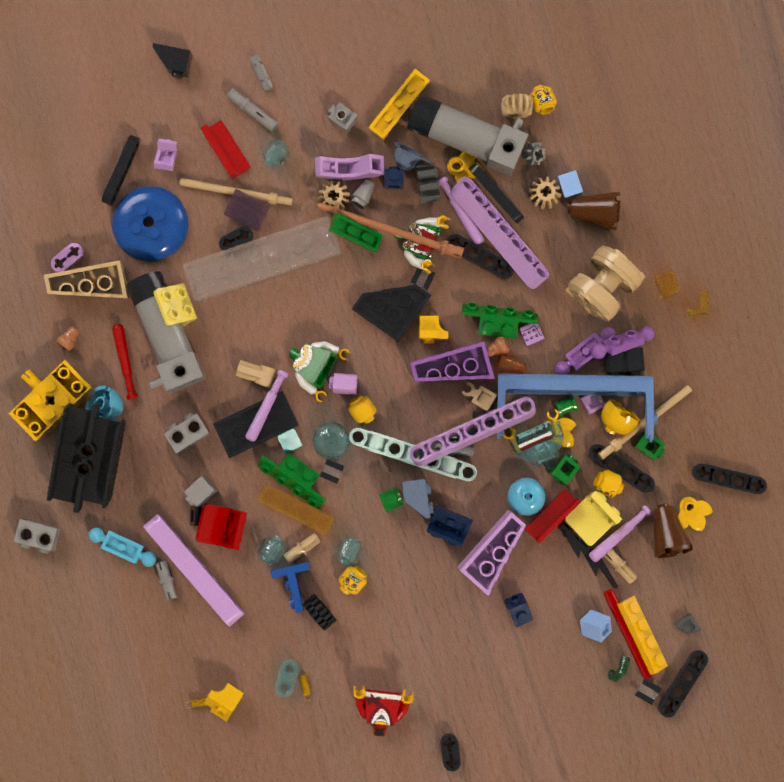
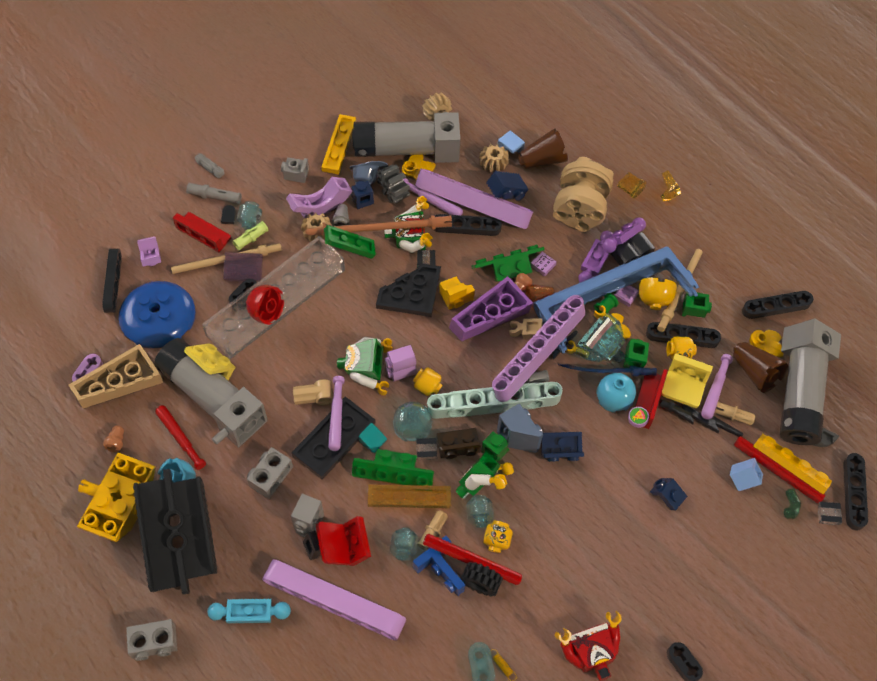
camera: 25 degrees left, 25 degrees down
(166, 580) = (310, 624): light grey pin -> none
(175, 60) = (126, 181): black slope -> none
(243, 274) = (265, 304): none -> red cylinder
(257, 140) = (228, 215): none -> black piece
(267, 176) = (250, 235): none -> yellowish green pin
(320, 592) = (467, 556): none -> red axle
(361, 478) = (458, 443): none -> dark brown bracket
(363, 522) = (483, 474): none -> torso
(492, 552) = (614, 454): lavender wedge -> none
(496, 193) = (454, 172): black beam -> none
(531, 531) = (638, 417): none -> tile
(532, 477) = (633, 370): none -> dark blue sword
(533, 153) = (469, 134): light grey gear -> none
(538, 236) = (507, 185): none -> dark blue brick
(543, 99) = (457, 97): yellow head -> none
(700, 570) = (810, 350): none -> light grey piece

